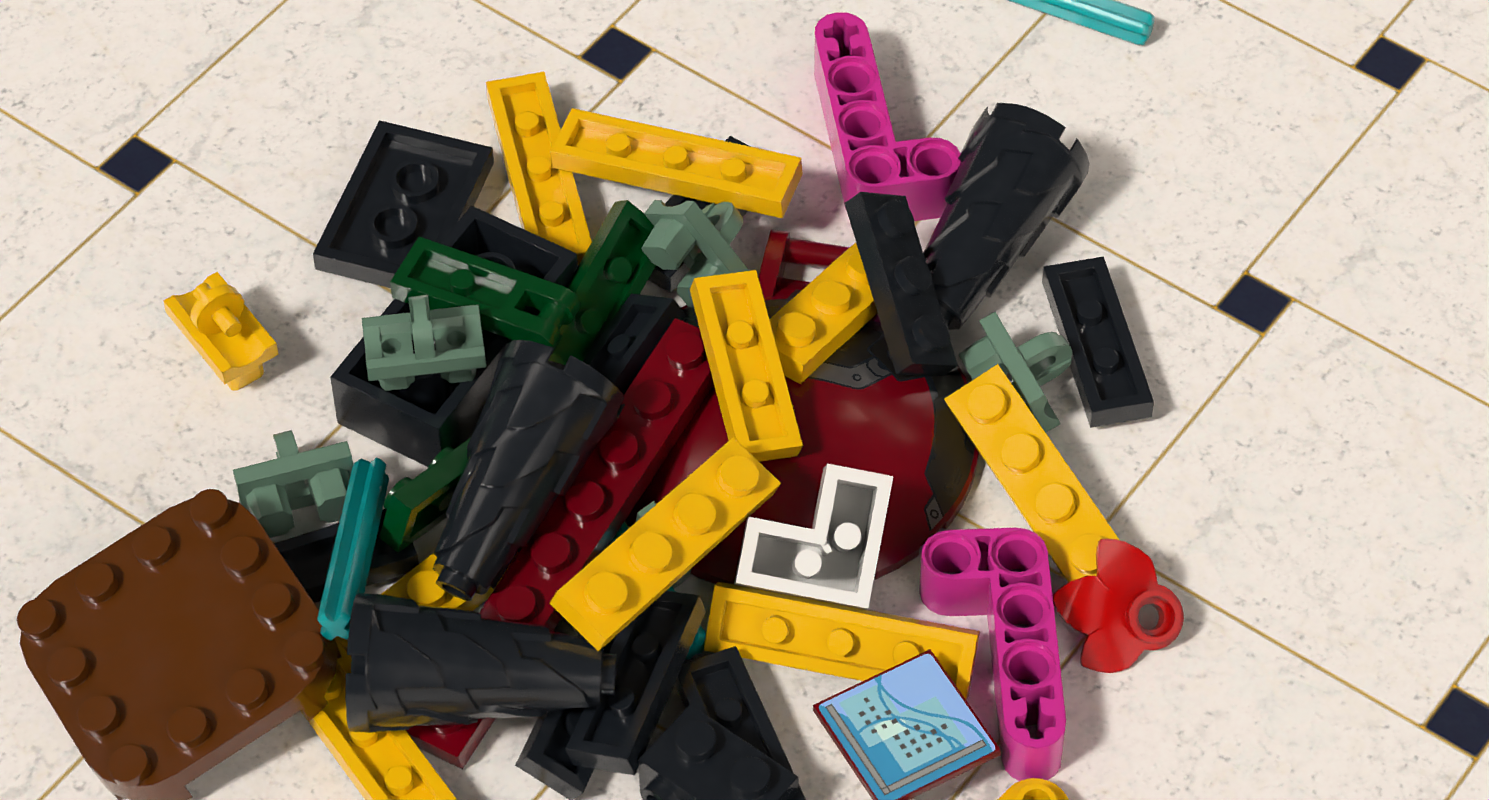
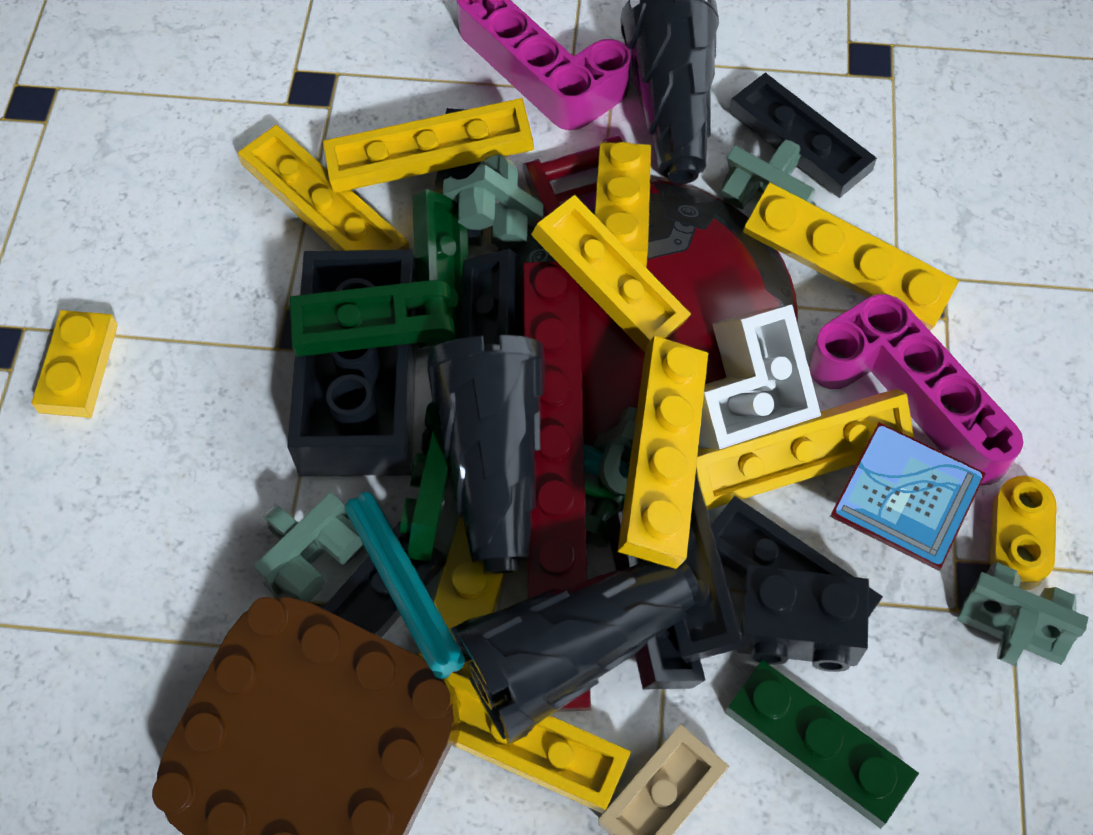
camera: 30 degrees left, 10 degrees up
(199, 215) = (75, 364): none -> yellow plate
(223, 331) = (160, 449): yellow hips -> none
(391, 348) = (377, 376): sand green hips -> none
(400, 190) = (236, 279): black plate -> none
(901, 284) = (662, 155): black plate -> none
(1109, 608) = (970, 317): red plate -> none

